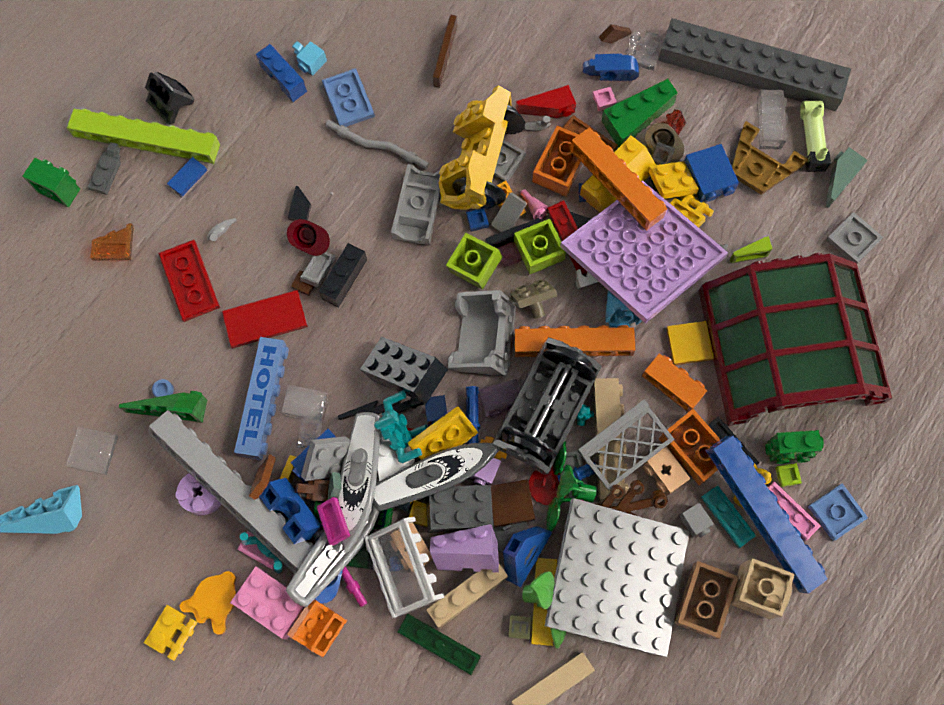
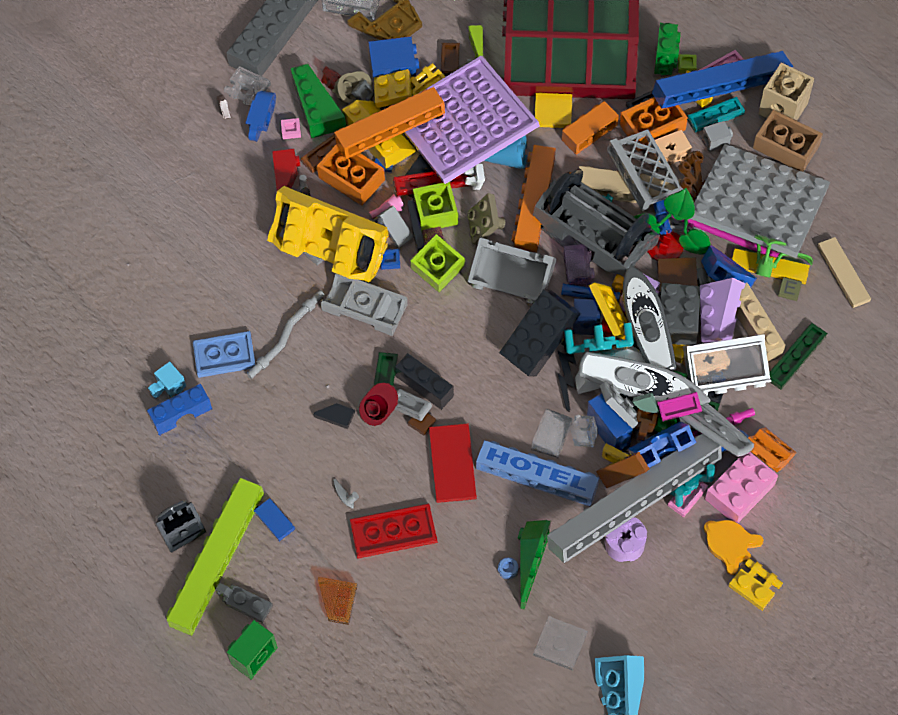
camera: 80 degrees left, 10 degrees down
(358, 238) = (385, 368): none -> dark green tile
(445, 51) = (198, 254): reddish brown tile -> none
(728, 229) = (449, 58): none -> reddish brown tile
(837, 512) = (725, 36): medium blue tile -> none

